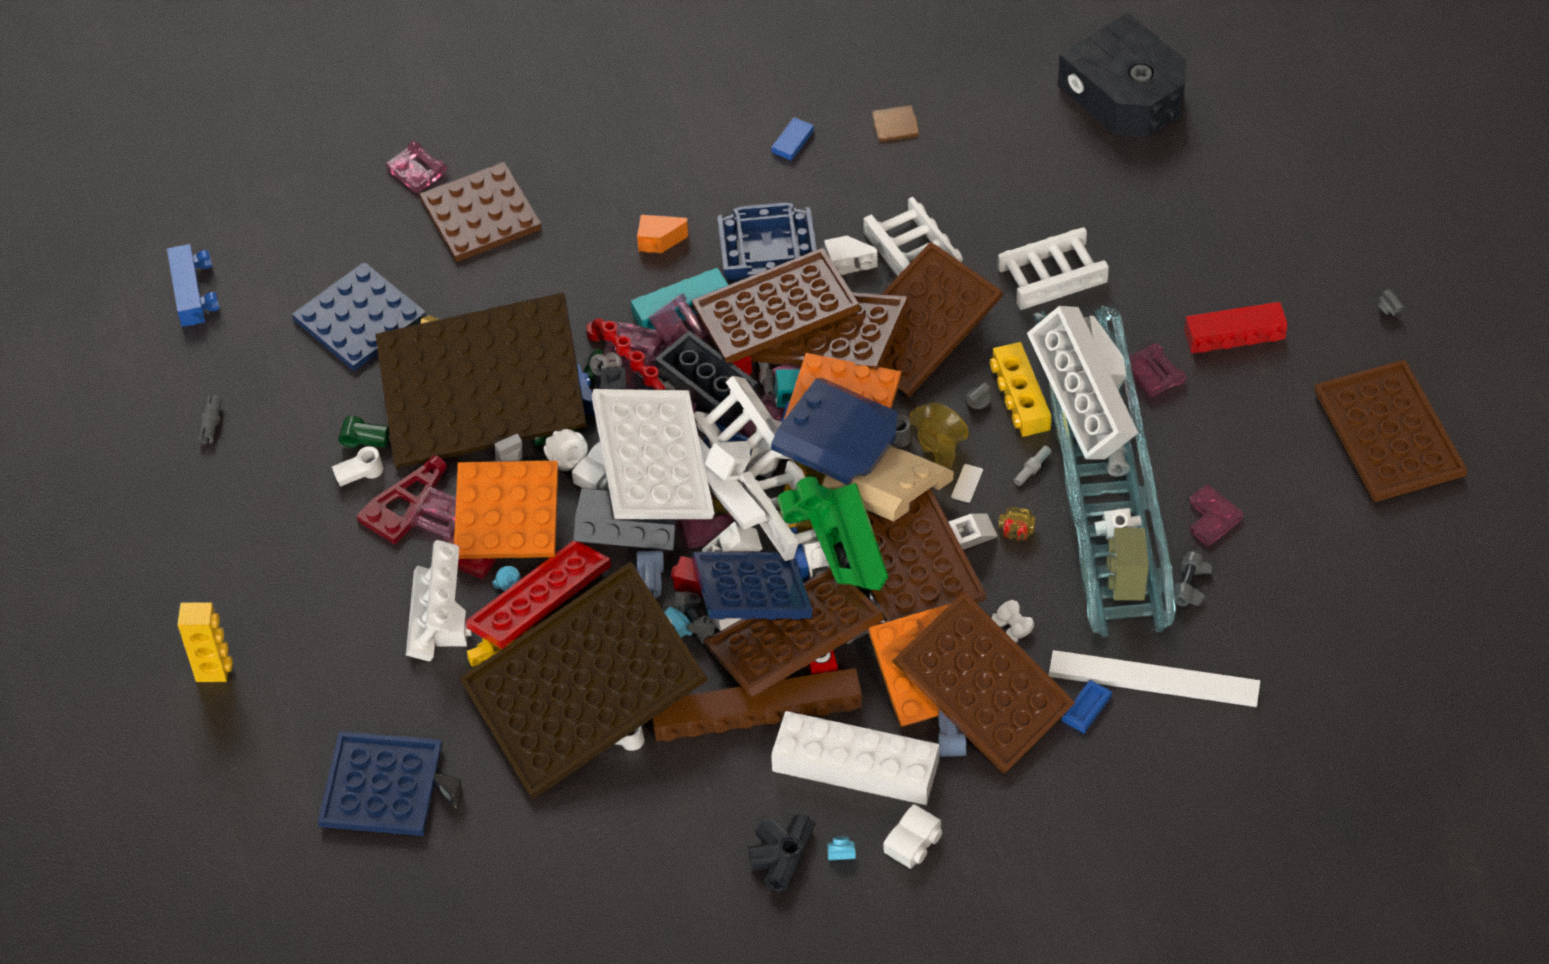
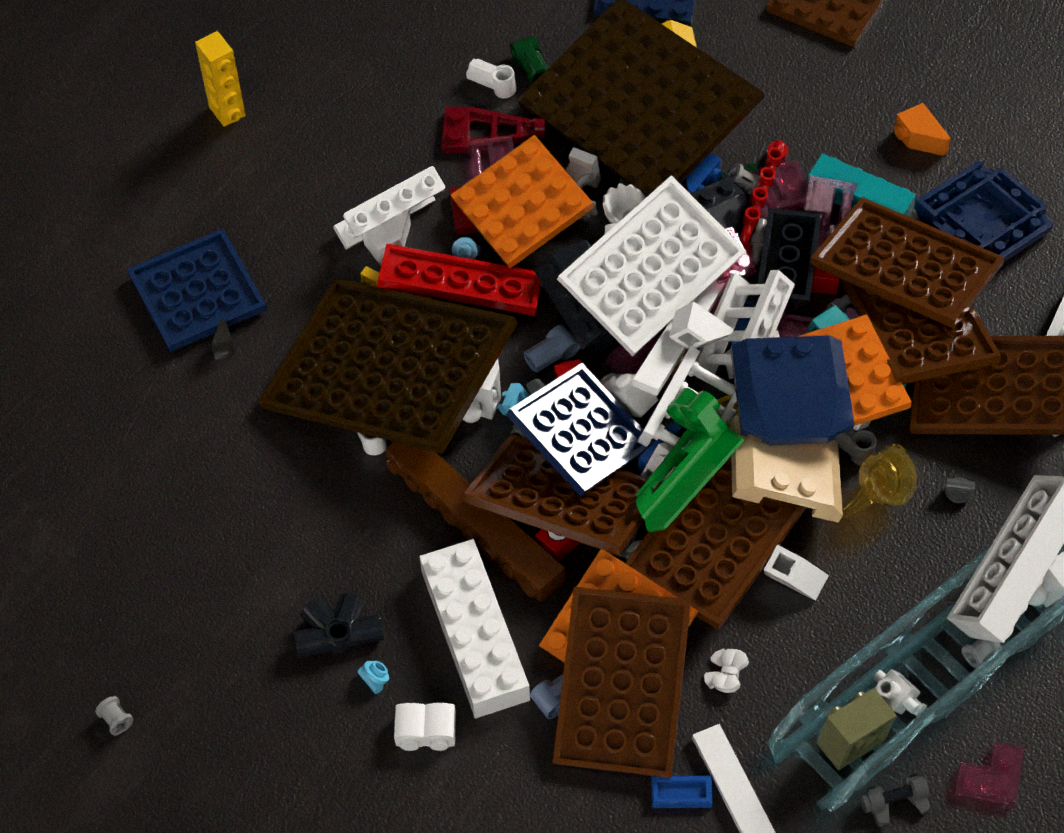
camera: 55 degrees right, 5 degrees up
(850, 254) = (1026, 286): white slope -> none
(967, 483) = (856, 539): white sticker -> none
(1017, 523) = (839, 607): clear yellow head -> none
(1021, 389) = (964, 543): yellow brick -> none
(1032, 465) = (917, 581): light grey bar -> none

